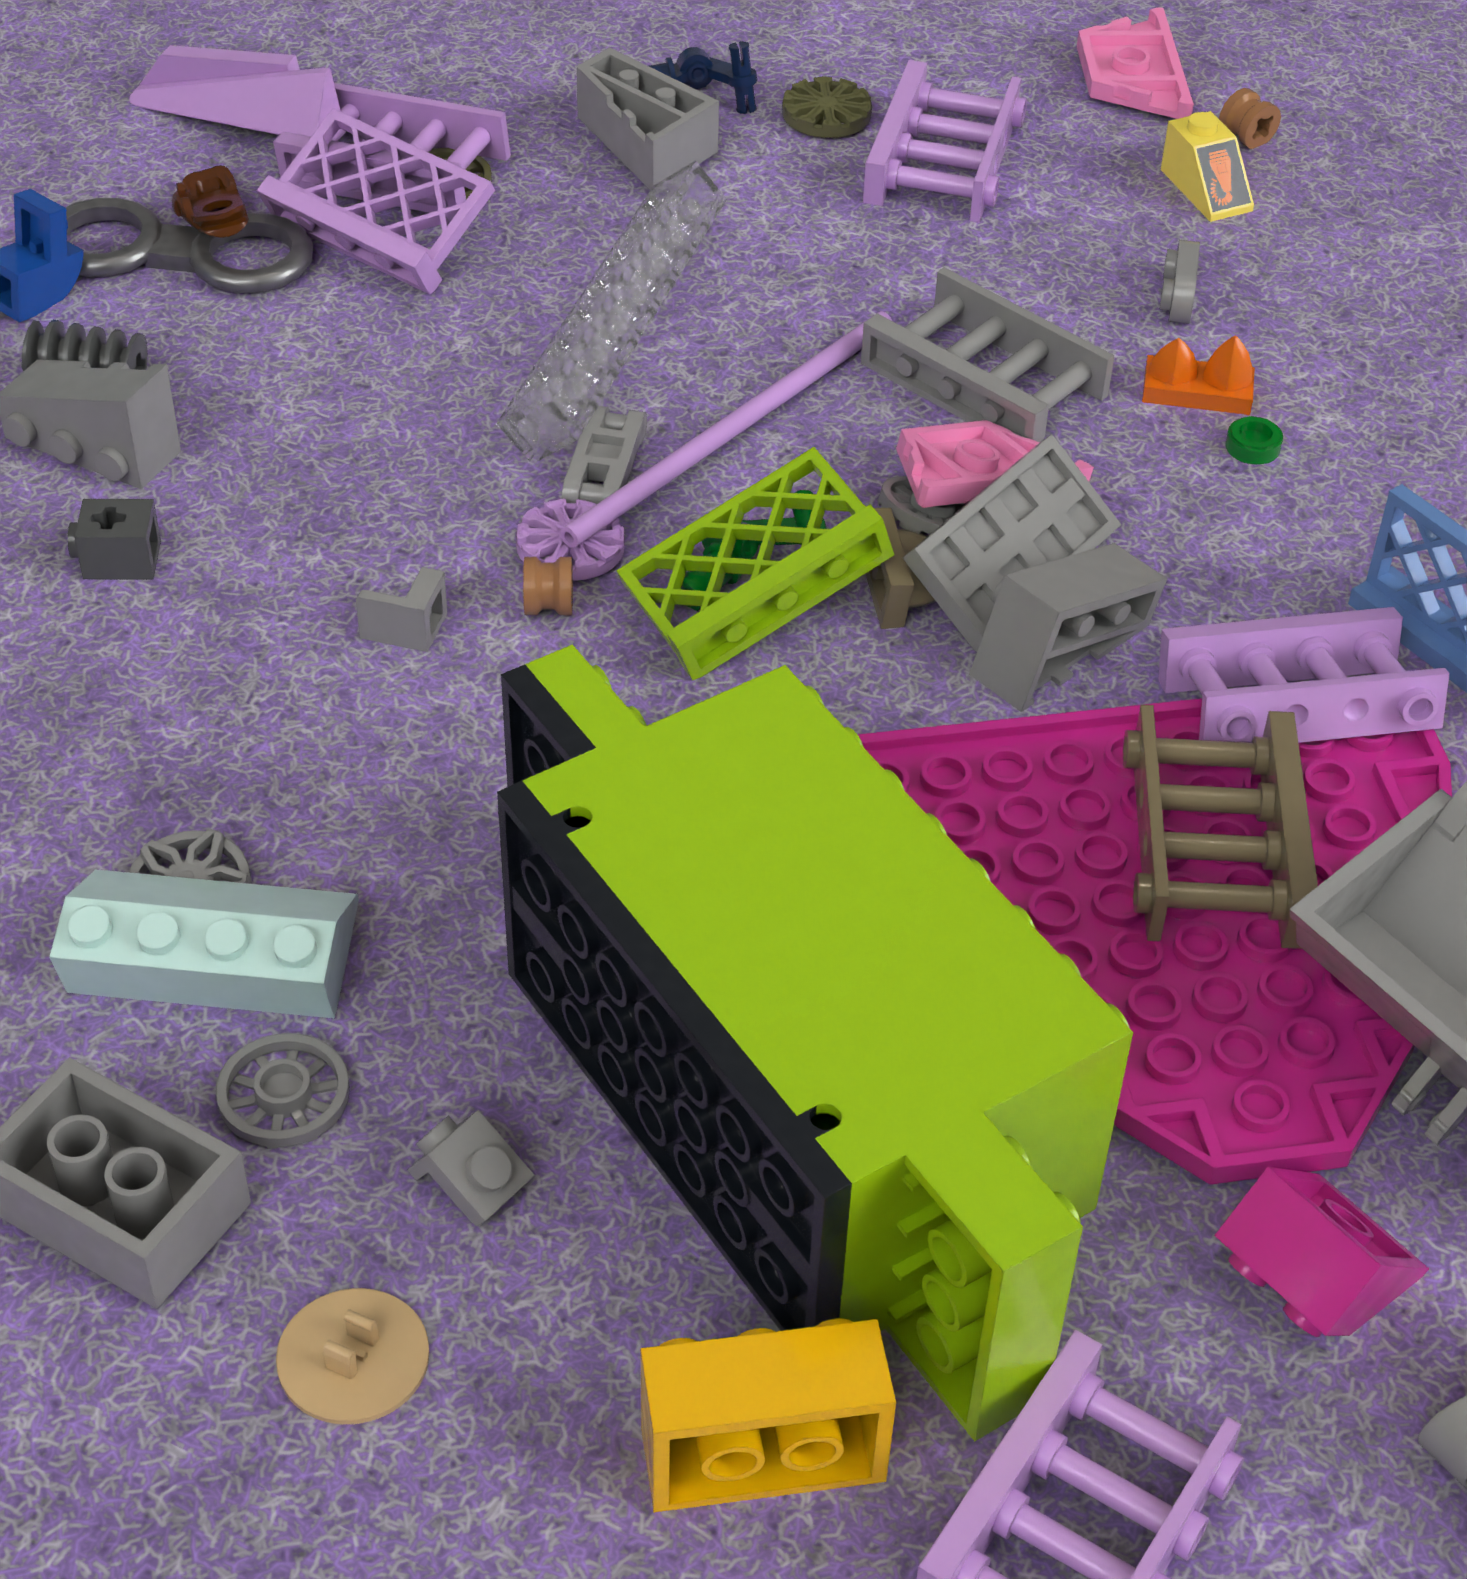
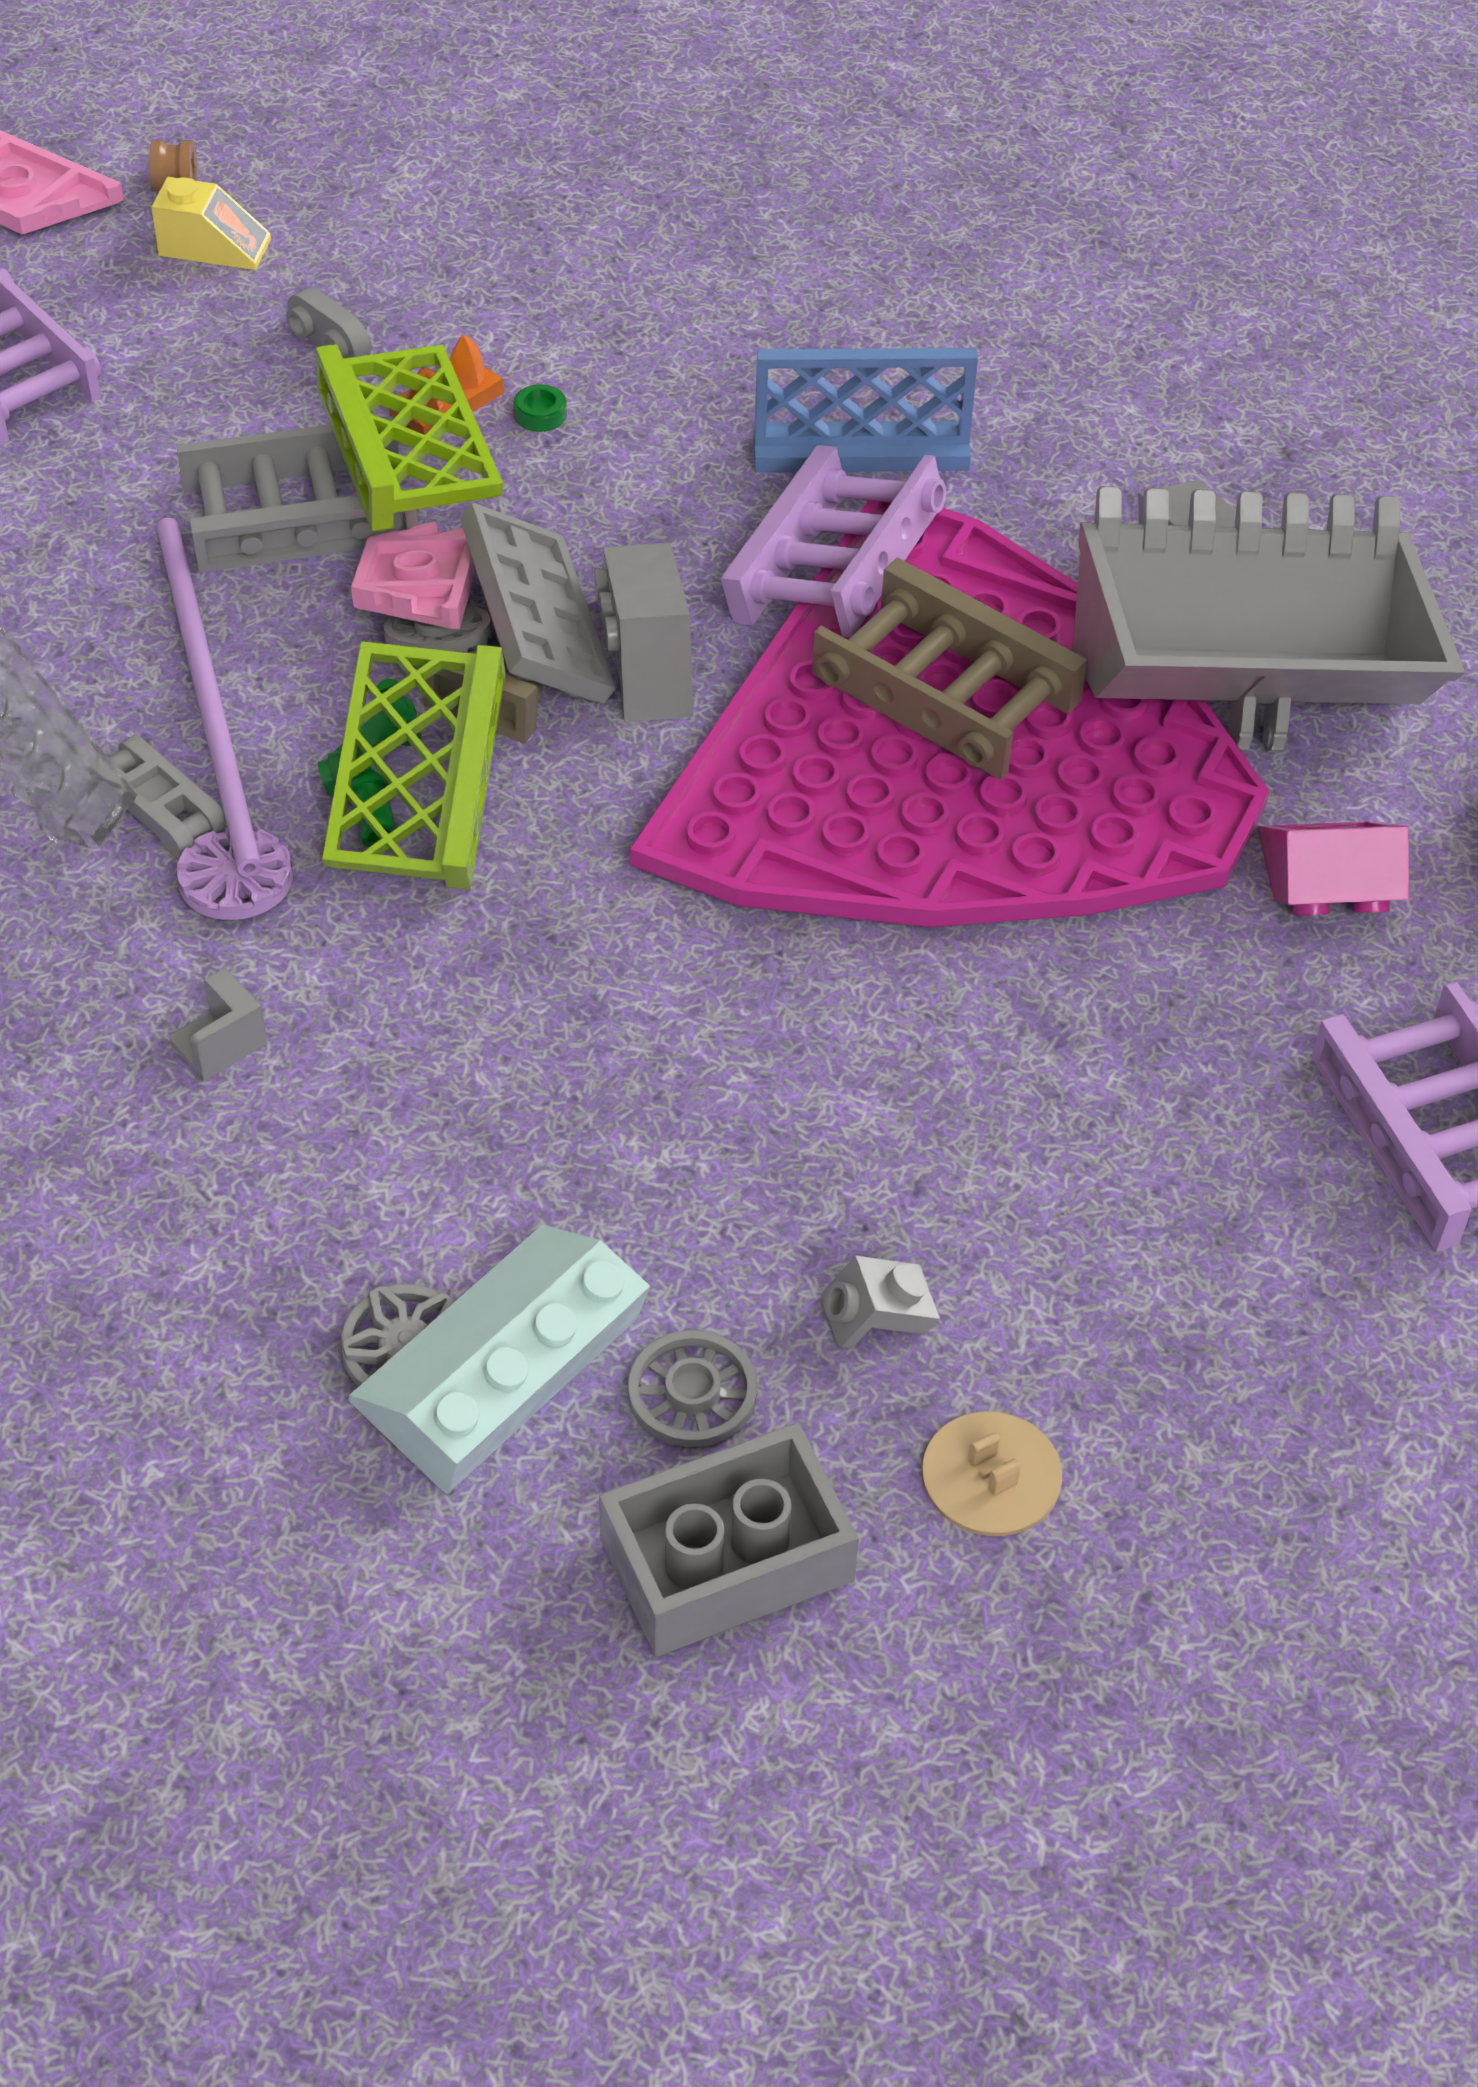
camera: 55 degrees left, 5 degrees up
(548, 586) = (288, 914): medium nougat wheel -> none
(766, 1413) = (1265, 1230): yellow brick -> none
(811, 1016) = (961, 993): lime piece -> none
(1055, 338) = (365, 436): none -> lime fence

